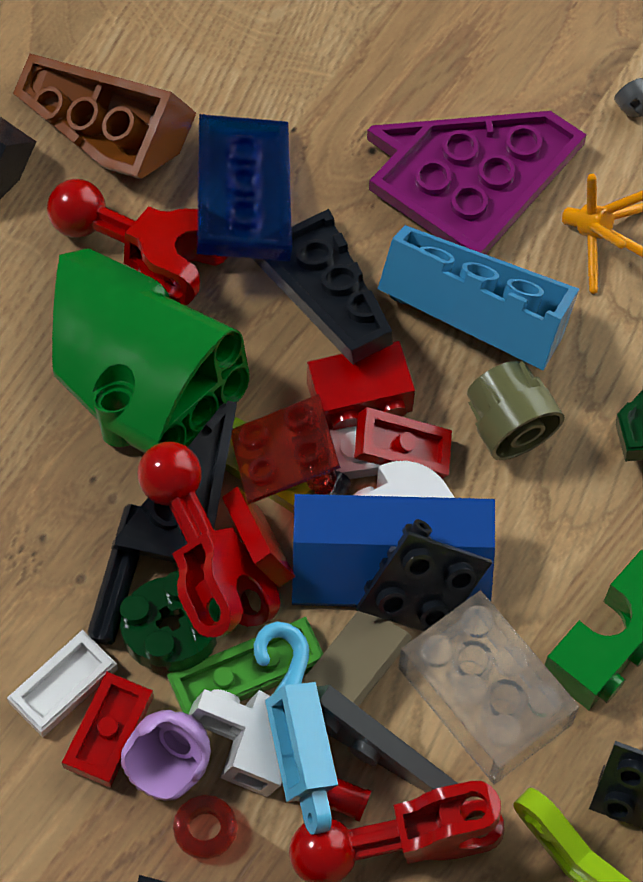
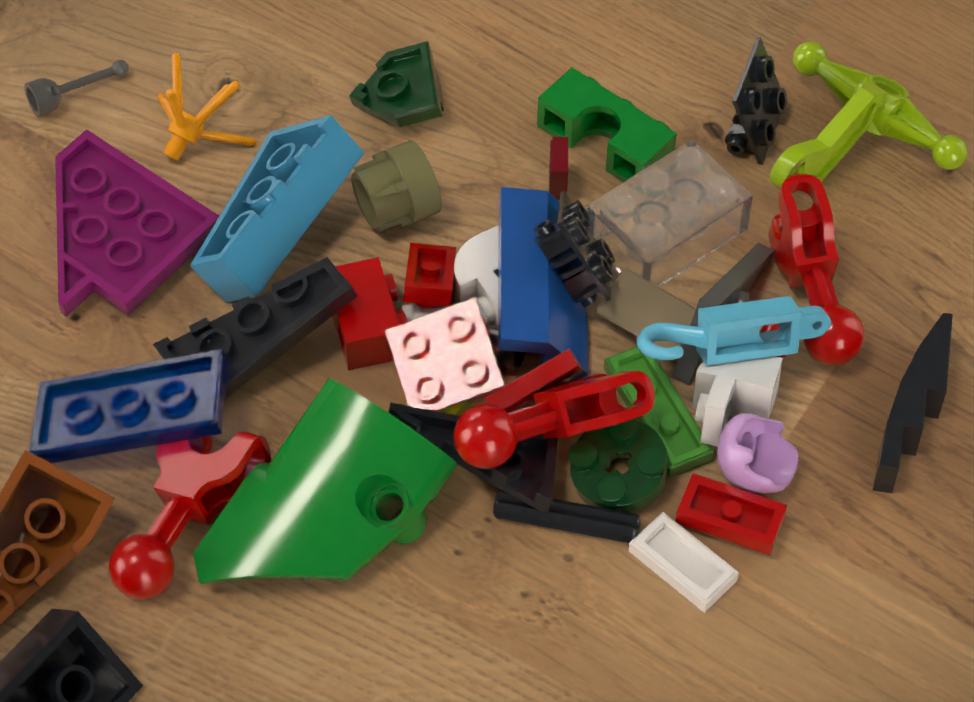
camera: 90 degrees left, 10 degrees down
(205, 805) = (815, 420): clear red piece -> none
(556, 578) = (558, 166): none -> dark red tile

